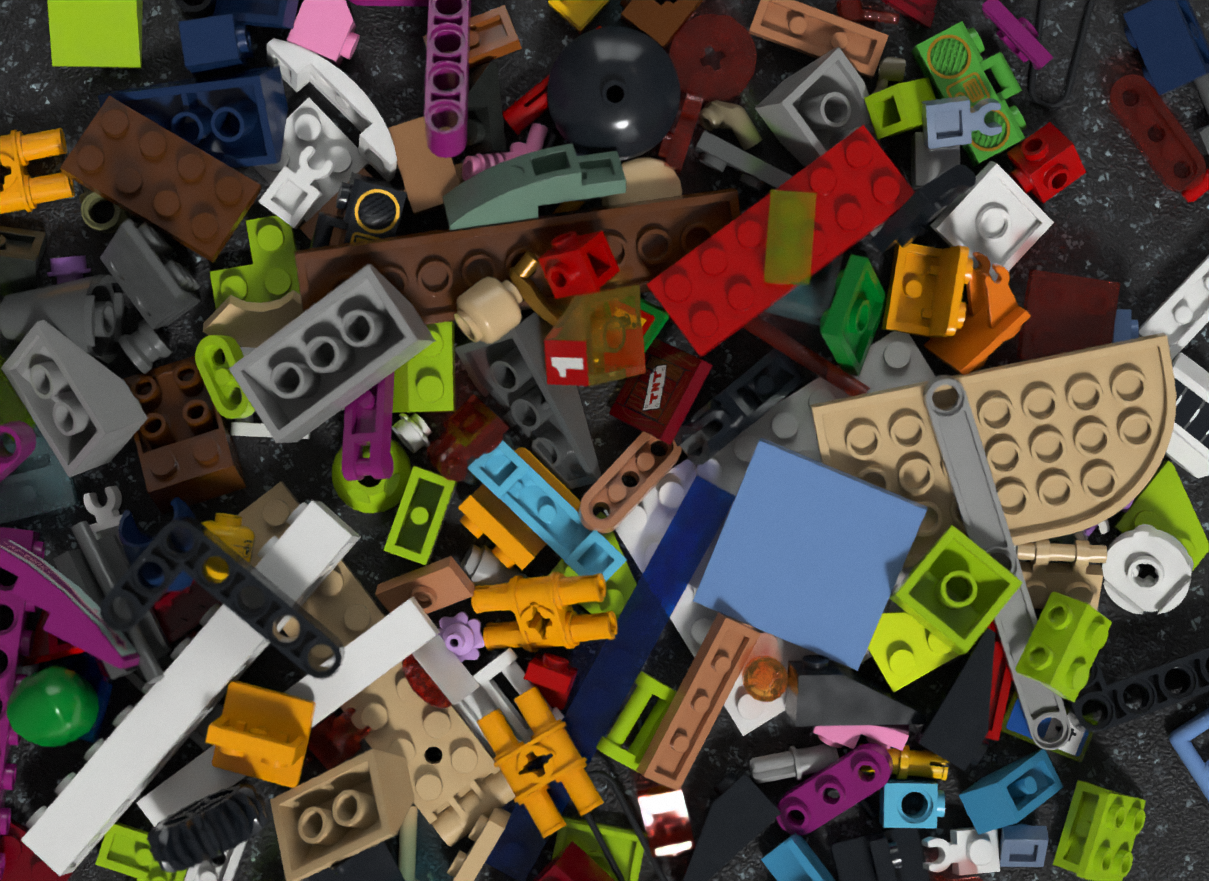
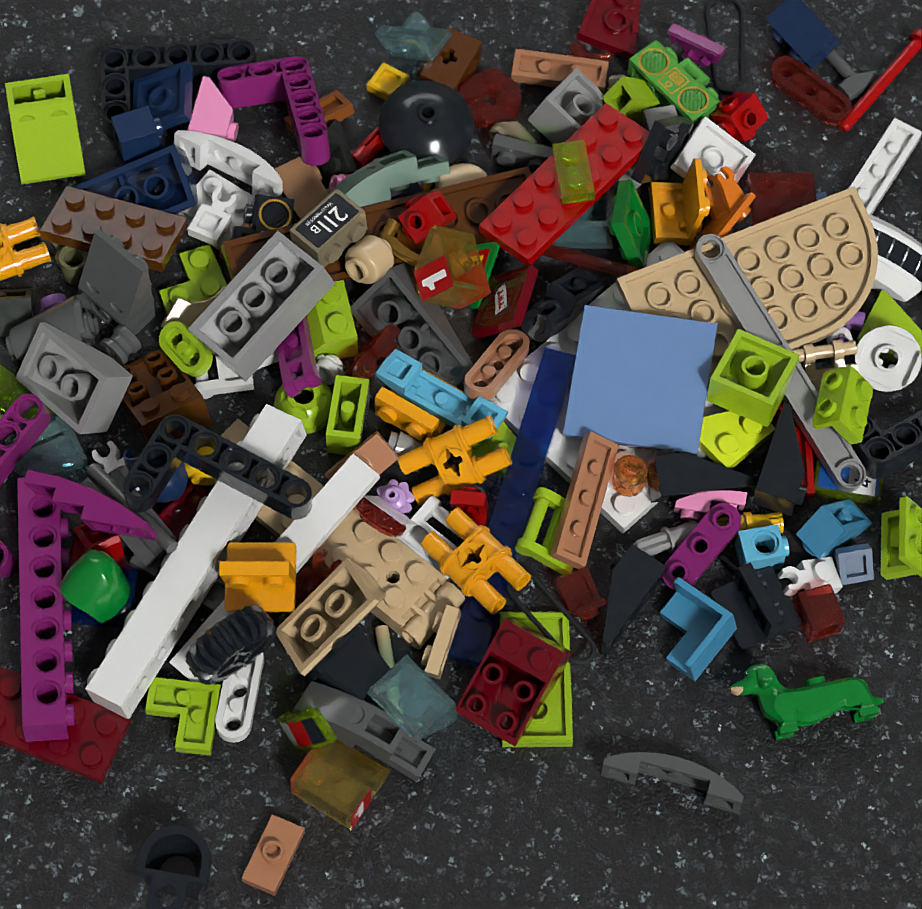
camera: 15 degrees left, 25 degrees down
(440, 268) = (330, 228): none -> brick
(675, 145) = (478, 151): clear red plate -> none
(951, 121) = (668, 94): sand blue plate -> none

